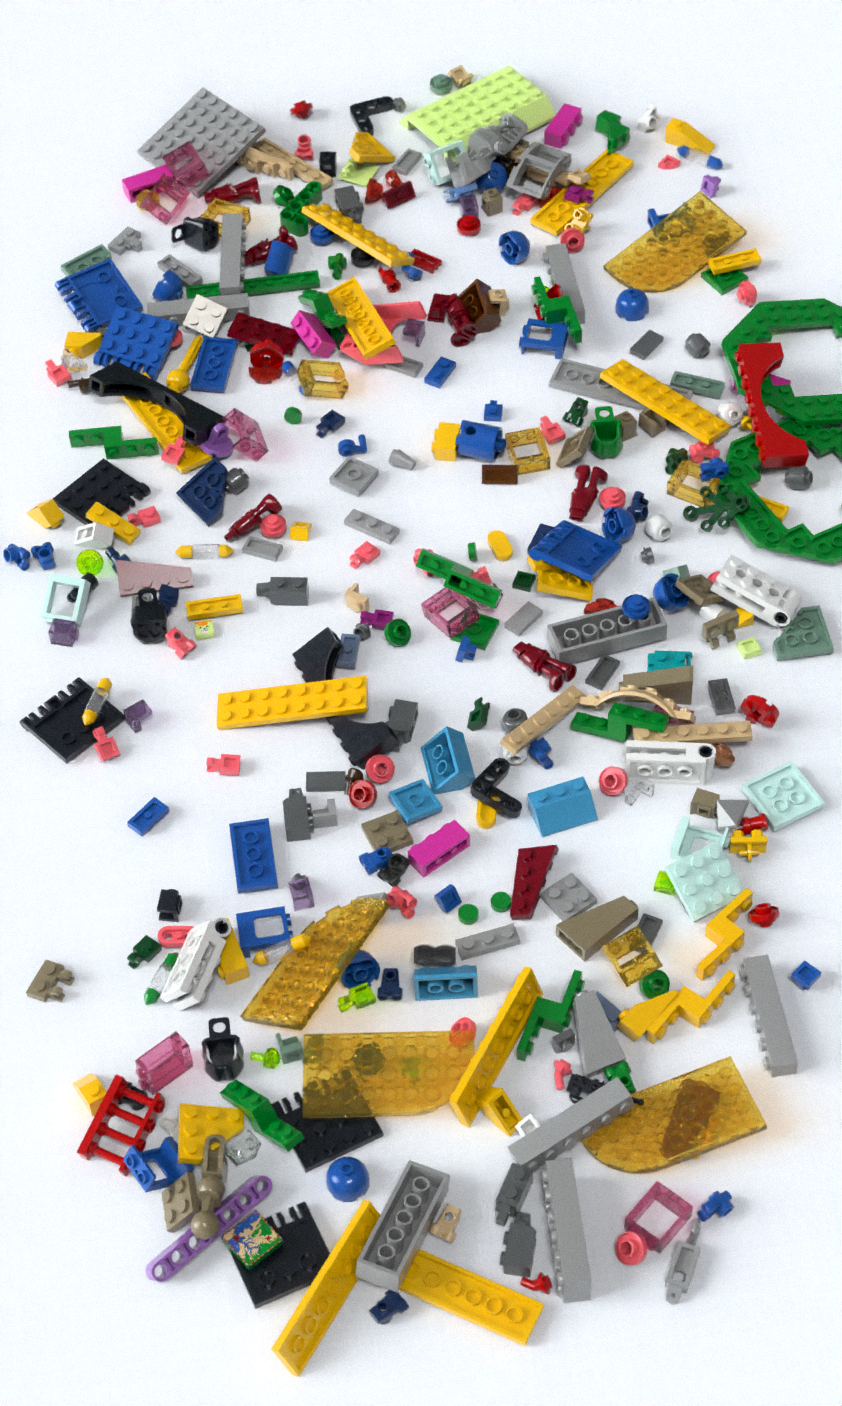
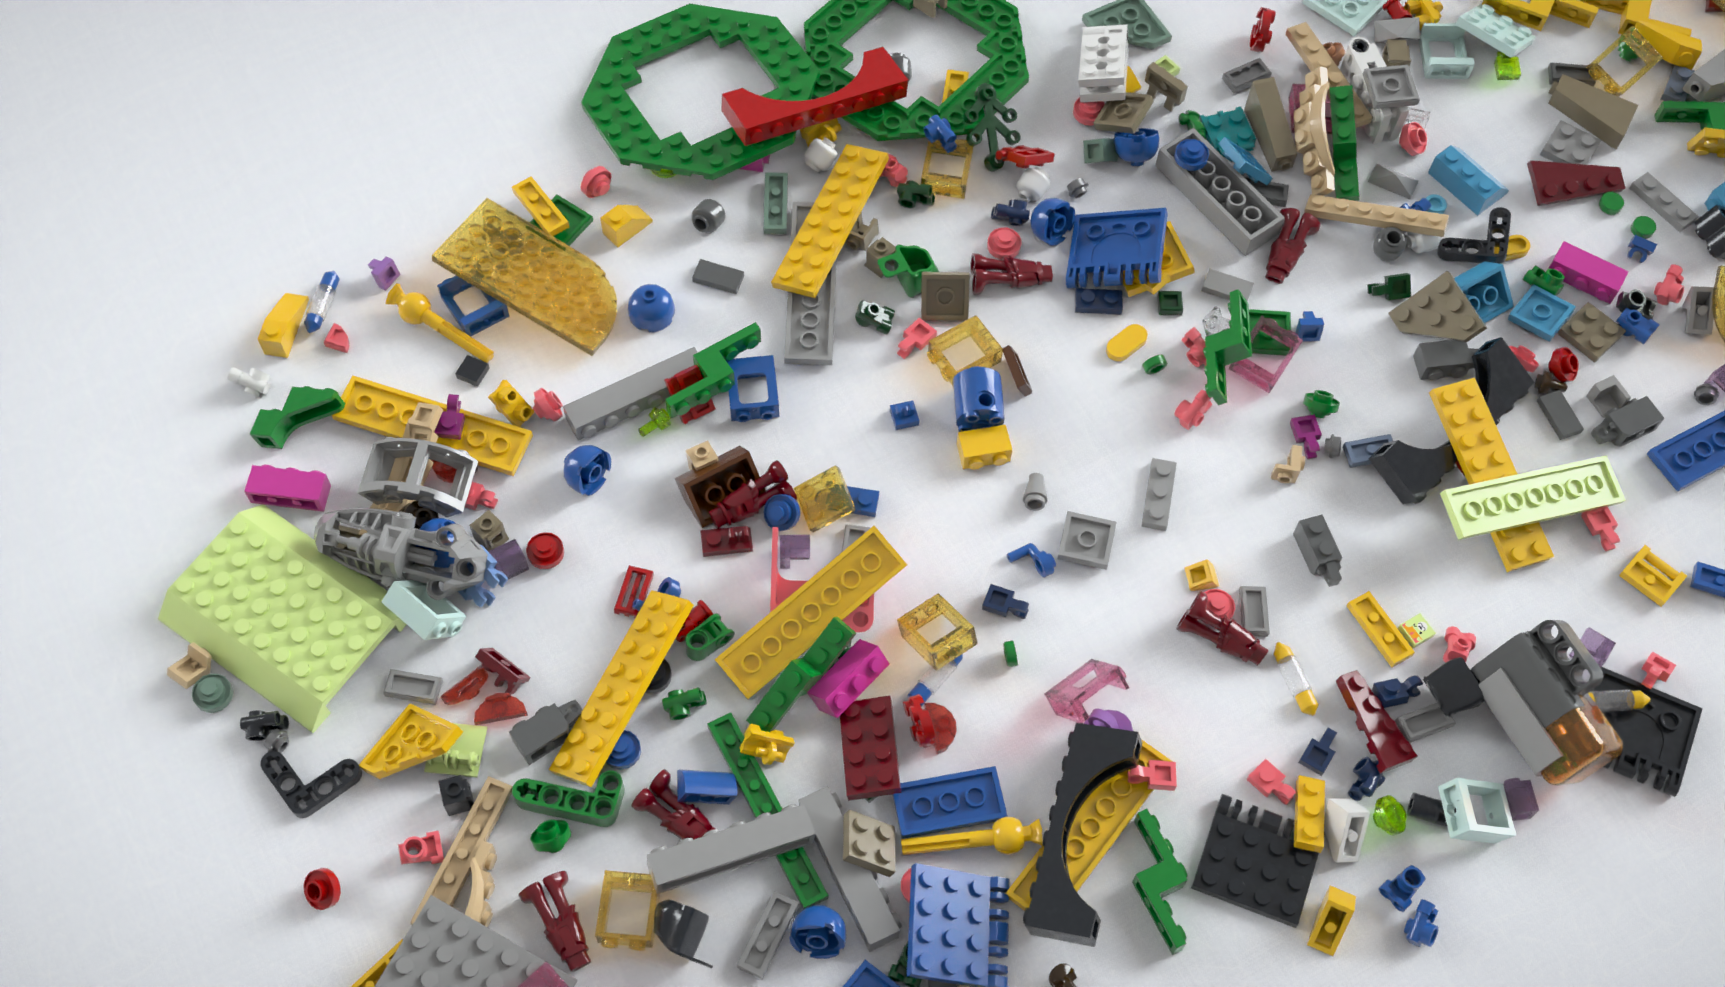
camera: 115 degrees left, 10 degrees up
(103, 649) = (1547, 704): none -> piece
(149, 543) = (1318, 754): none -> dark blue plate
(172, 774) = (1649, 580): none -> yellow plate
(206, 491) = (1202, 709): dark blue plate -> none
(236, 480) = (1161, 682): dark grey head -> none
(258, 713) = (1532, 497): none -> yellowish green plate
(292, 282) = (767, 745): none -> yellow hips
(364, 553) = (1207, 485): coral plate -> none
(374, 282) = (711, 634): none -> green piece
(411, 98) = (260, 722): none -> black plate
(437, 718) = (1439, 312): none -> dark tan plate
(443, 331) = (781, 512): none -> blue plate
(444, 353) = (824, 498): none -> clear yellow plate
(446, 814) = (1549, 280): none -> green plate
(546, 777) = (1438, 204): none -> medium azure tile
(580, 759) = (1393, 181): none -> light grey slope
(599, 605) = (1178, 211): clear red plate -> none
(618, 217) = (472, 370): none -> black tile
(626, 652) = (1244, 162): none -> dark azure plate
(649, 747) = (1391, 86): none -> light grey plate
(672, 194) = (416, 309): none -> yellow piece
(682, 523) = (1025, 156): none -> red plate
(682, 644) = (1191, 119): none -> green arm
(708, 303) = (623, 223): none -> yellow slope

